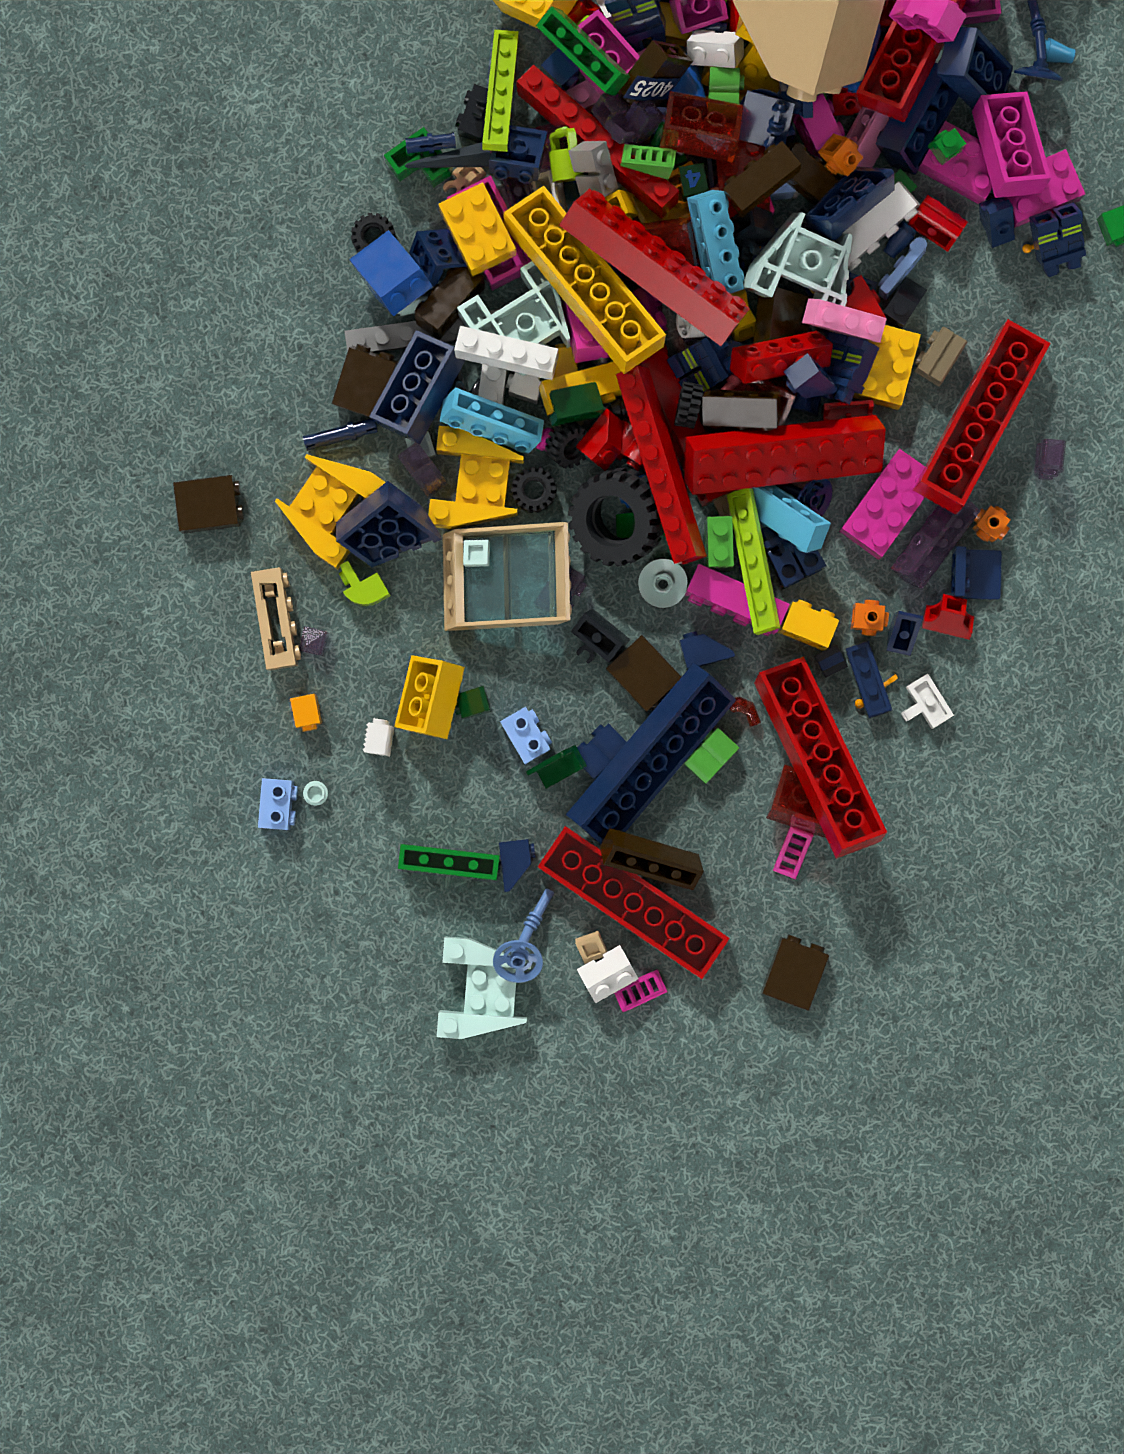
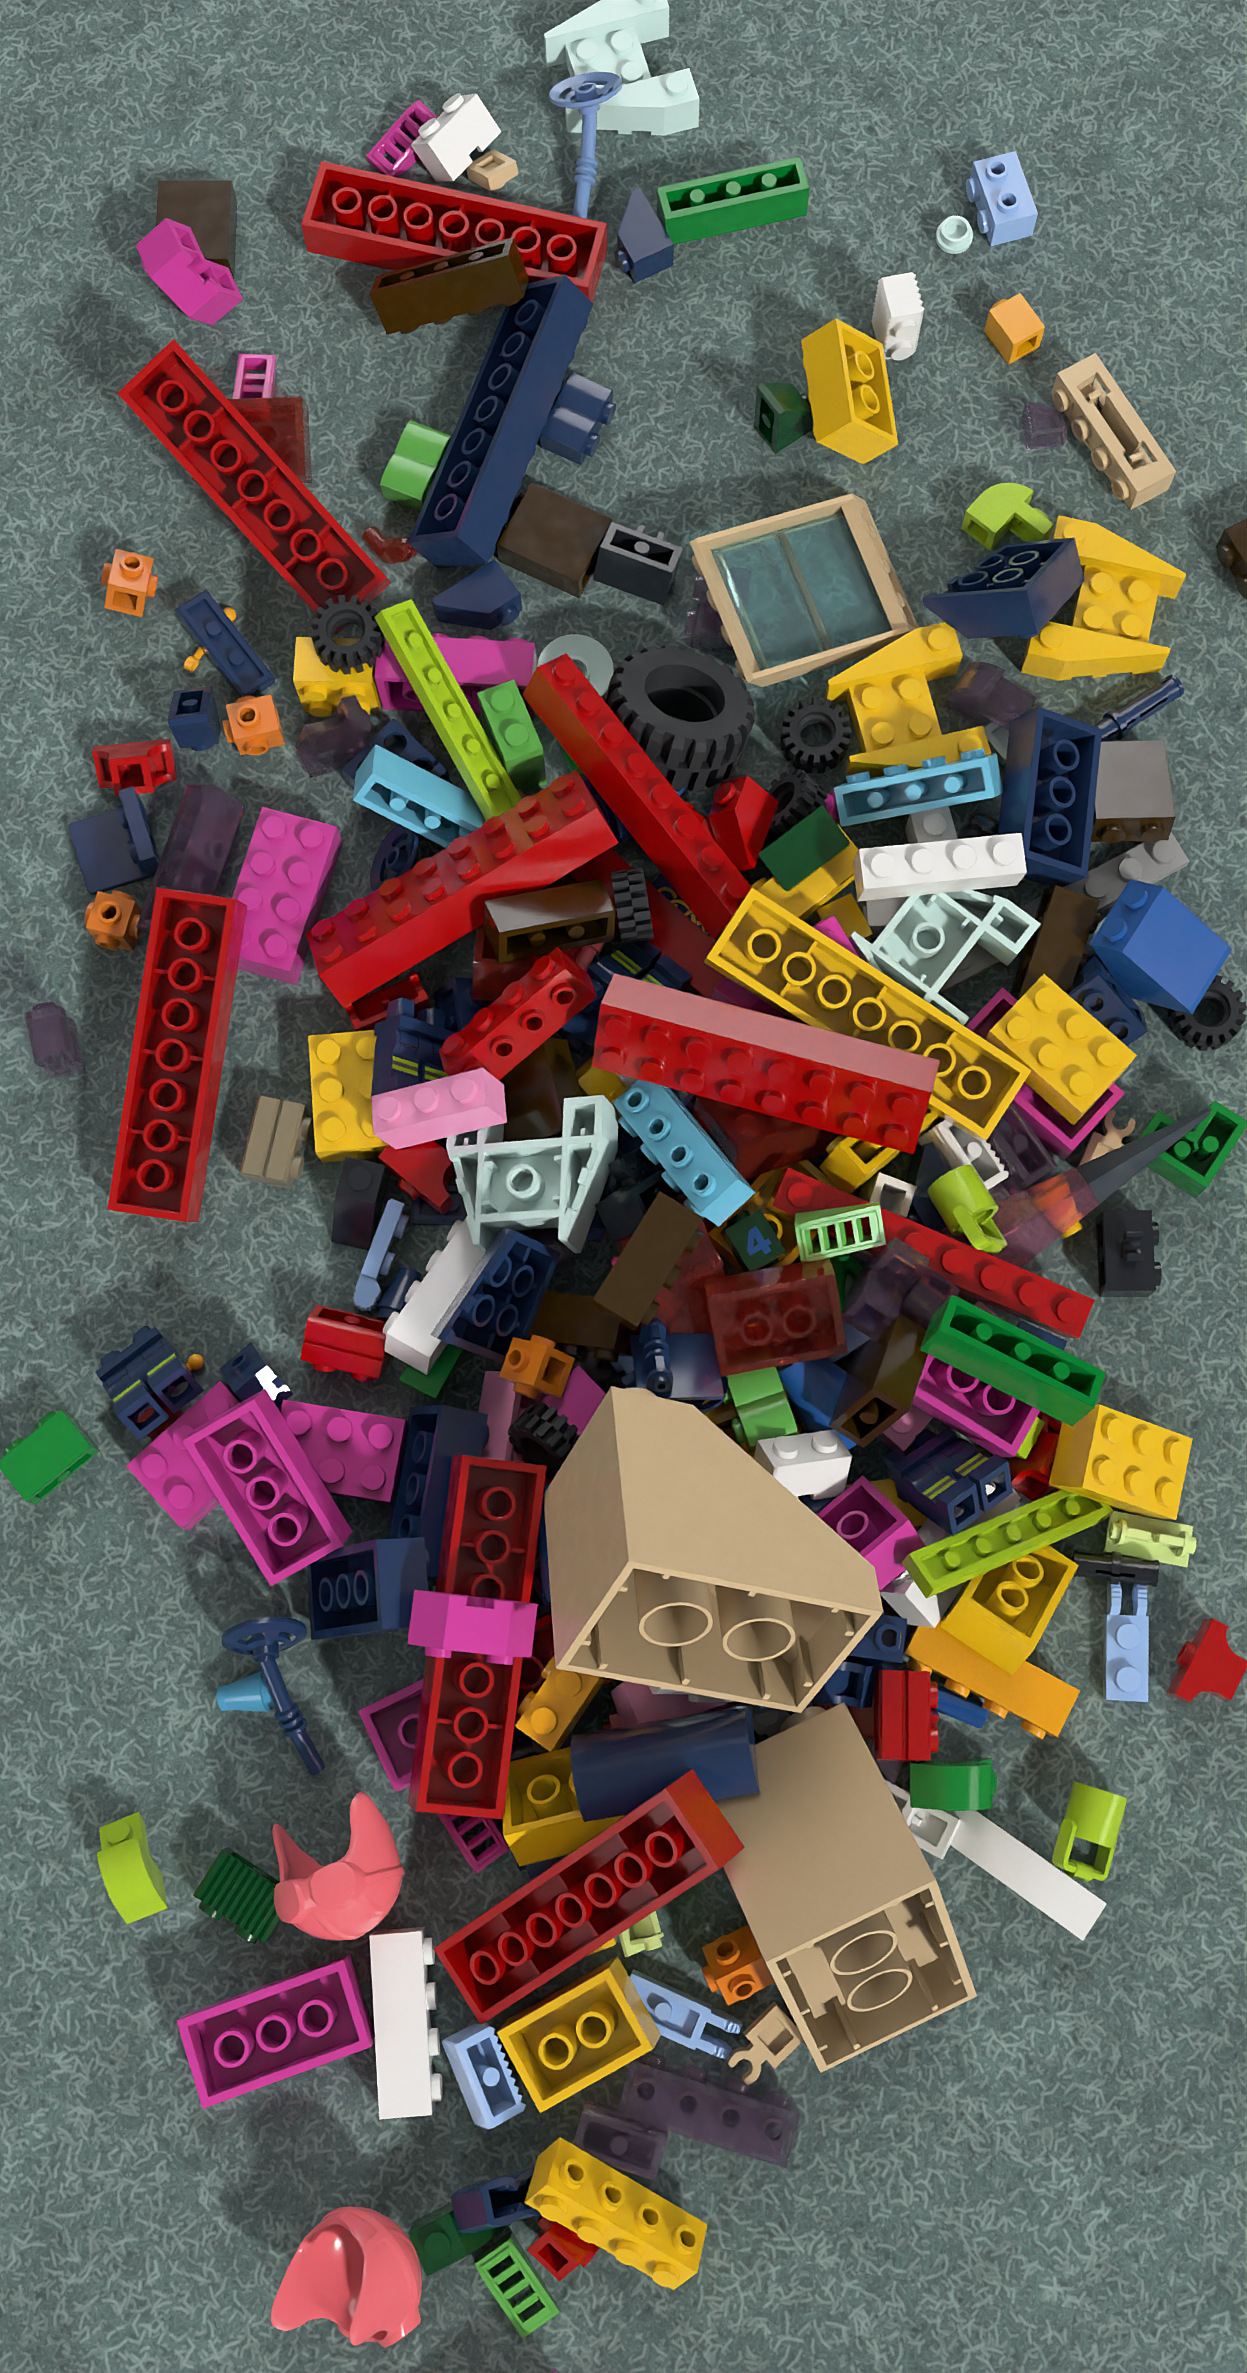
camera: 160 degrees right, 10 degrees down
(430, 143) = (1186, 1160): dark blue pin -> none
(476, 553) = (863, 607): light aqua plate -> none
(500, 90) = (1112, 1284): lime plate -> none
(523, 155) = (1046, 1190): dark blue plate -> none
(525, 734) = (691, 402): light blue brick -> none
(559, 766) = (631, 372): dark green panel -> none
(596, 160) = (918, 1196): light grey piece -> none
(650, 88) = (888, 1338): dark blue sticker -> none
(809, 378) = (459, 1000): dark blue slope -> none
(809, 621) = (339, 615): none -> black tyre
(815, 930) = (178, 267): none -> dark pink brick
(823, 589) = (335, 741): none -> brick
(830, 661) = (282, 654): tile -> none
(848, 115) = (543, 1437): none -> black tyre
(921, 736) = (129, 582): none -> orange brick
(928, 702) = (129, 645): white plate -> none
(947, 145) = (372, 1450): green brick -> none

